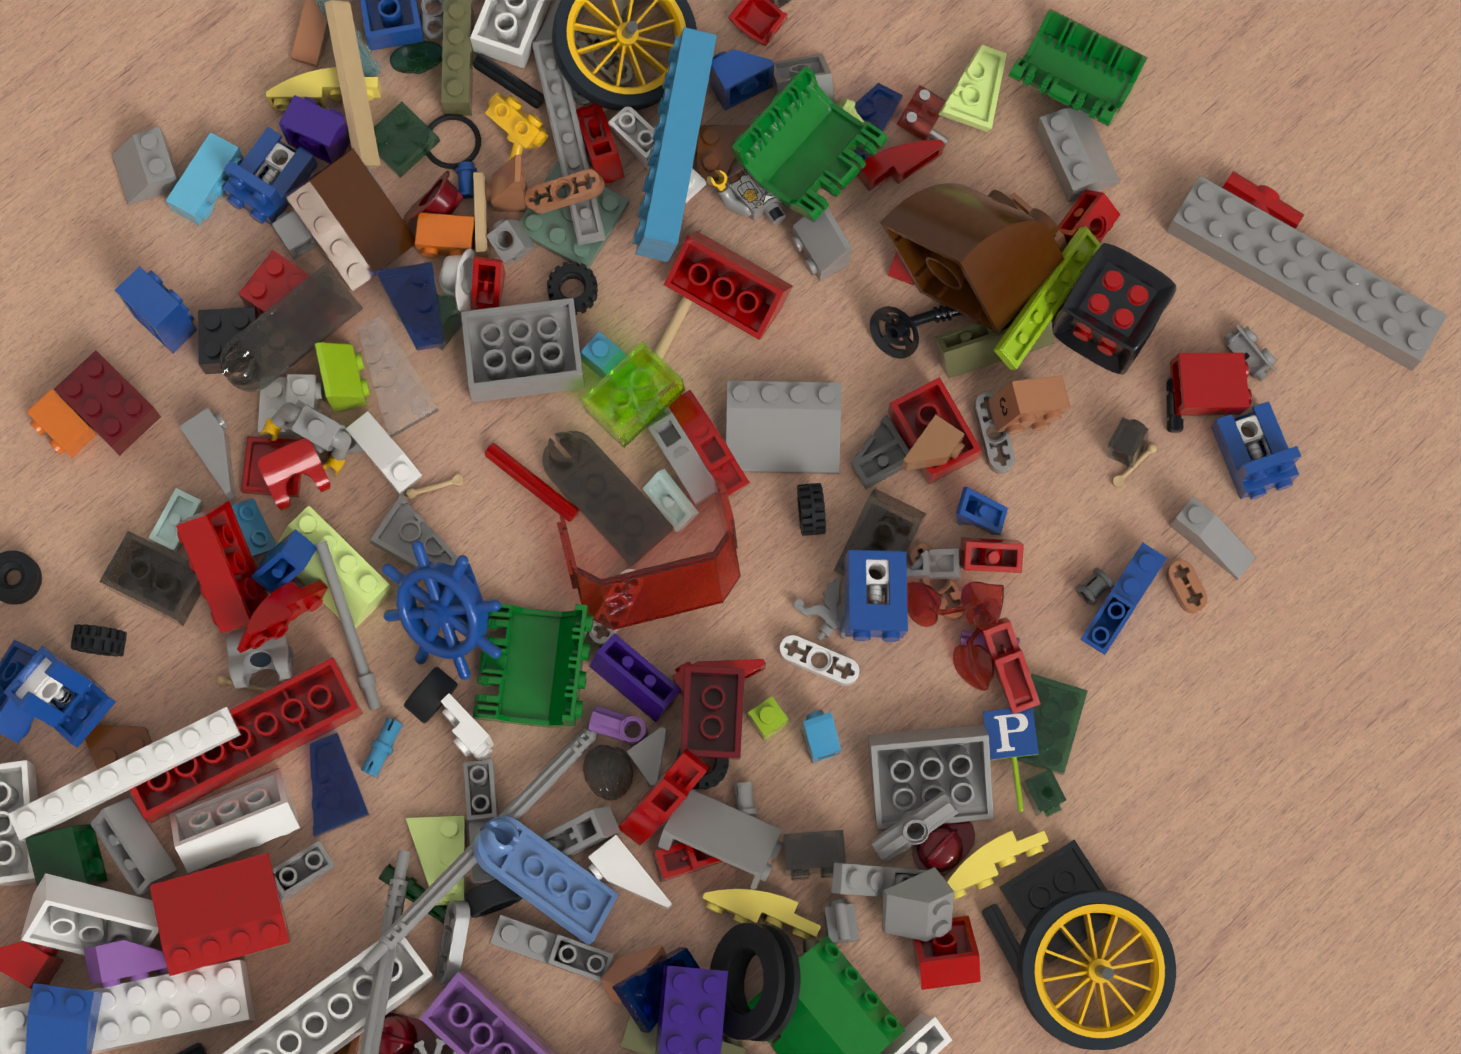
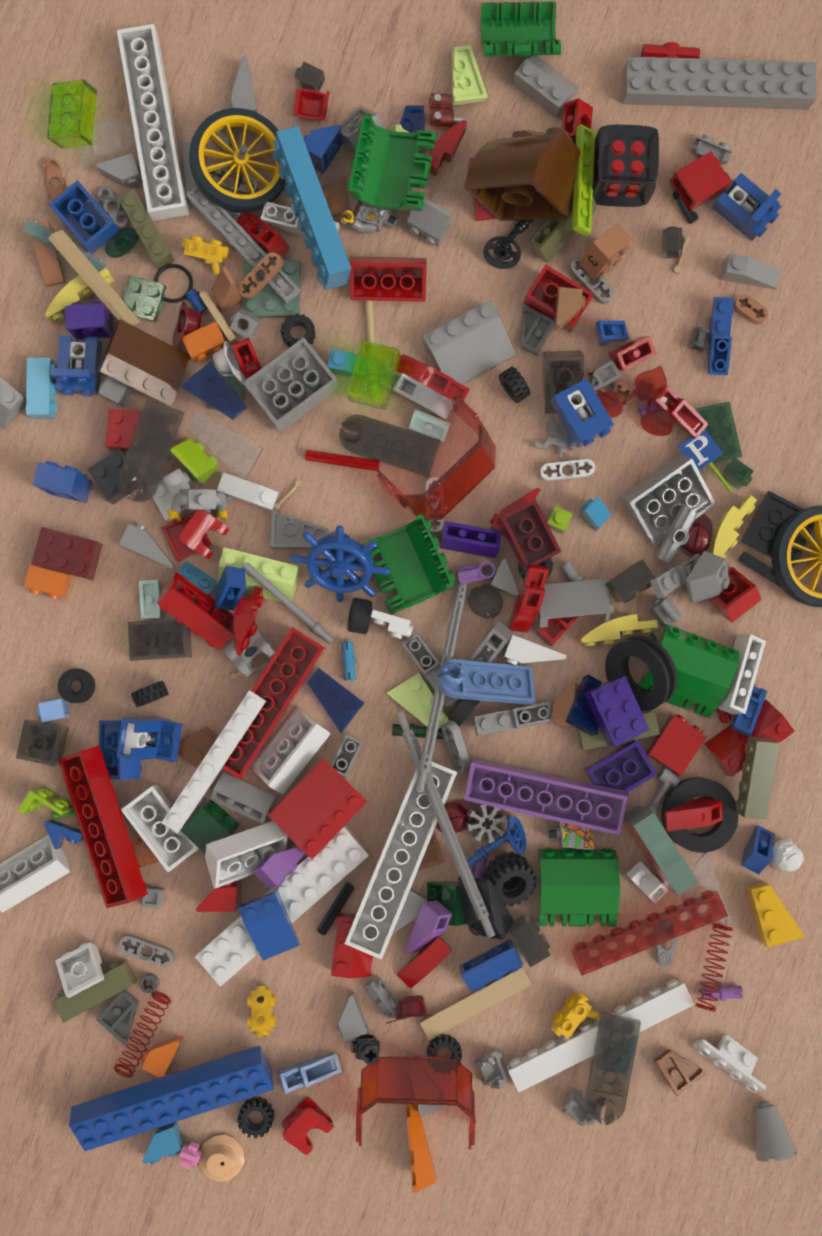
camera: 30 degrees left, 10 degrees up
(508, 81) = (185, 227): black axle -> none

